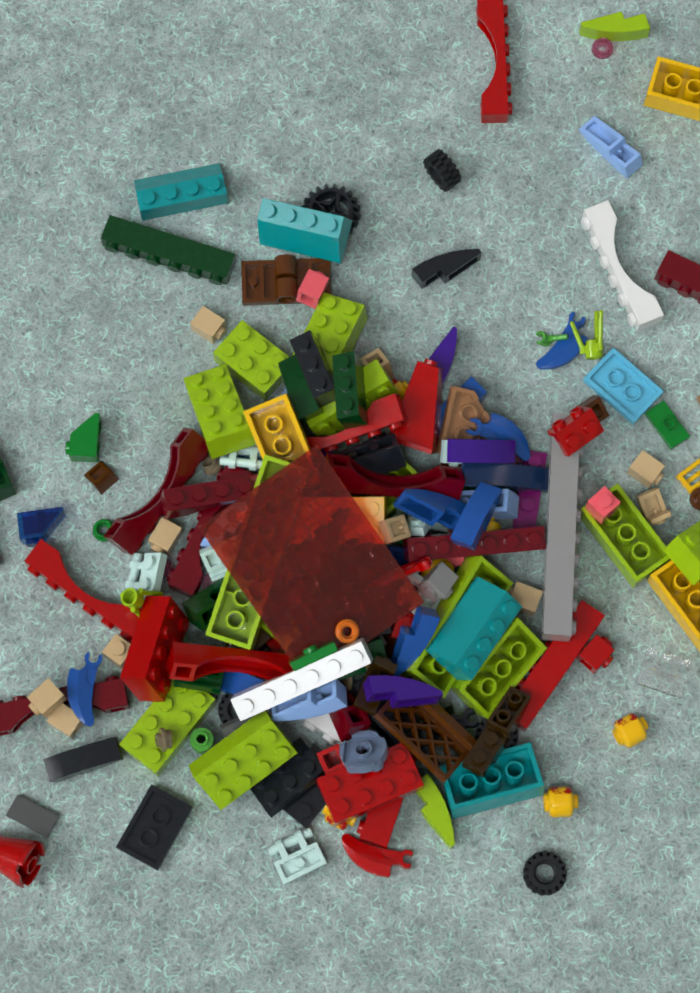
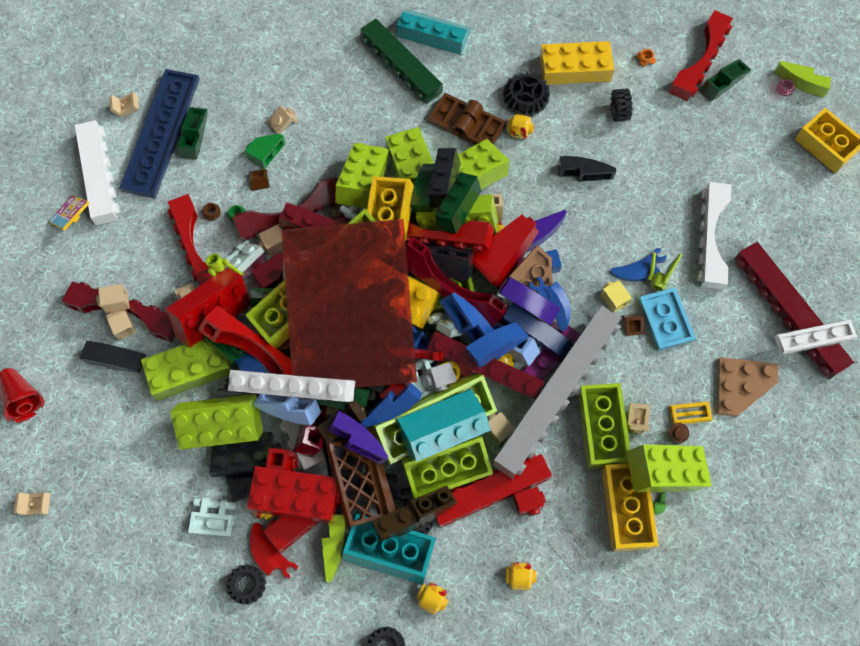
camera: 30 degrees right, 5 degrees down
(32, 816) = (54, 376): dark grey tile -> none
(38, 524) = (196, 185): clear blue slope -> none
(72, 537) = (207, 208): none -> reddish brown plate
(80, 690) = (142, 306): blue piece -> none
(81, 393) = (282, 118): none -> tan bracket
(107, 952) = (32, 504): none -> tan bracket
(154, 827) = (128, 435): black plate -> none
(163, 739) = (170, 372): dark tan plate -> none
(201, 748) = (200, 391): bright green brick -> none
(208, 325) = (395, 119): tan brick -> none
(303, 230) = (499, 91): teal slope -> none
(312, 288) = (480, 131): coral brick -> none
(312, 654) = (307, 370): green plate -> none
(351, 257) = (520, 126): none -> yellow head
(354, 631) = (338, 369): orange plate -> none
(363, 144) = (576, 62): none -> yellow brick
(364, 763) = (301, 476): sand blue plate -> none
(373, 883) = (237, 575): none -> black tyre
(394, 529) = (429, 318): tan bracket -> none
(435, 88) = (646, 53): none -> orange plate
(533, 74) = (725, 79): none -> dark green slope
(547, 339) = (629, 256): bright green hand -> none
(558, 391) = (615, 296): none -> light yellow brick
(576, 429) = (611, 325): red bracket -> none
(602, 505) = (598, 391): coral brick -> none
(611, 146) = (755, 153): light blue slope -> none
(646, 470) = (649, 387): tan brick -> none
(667, 425) = (684, 365): green plate -> none

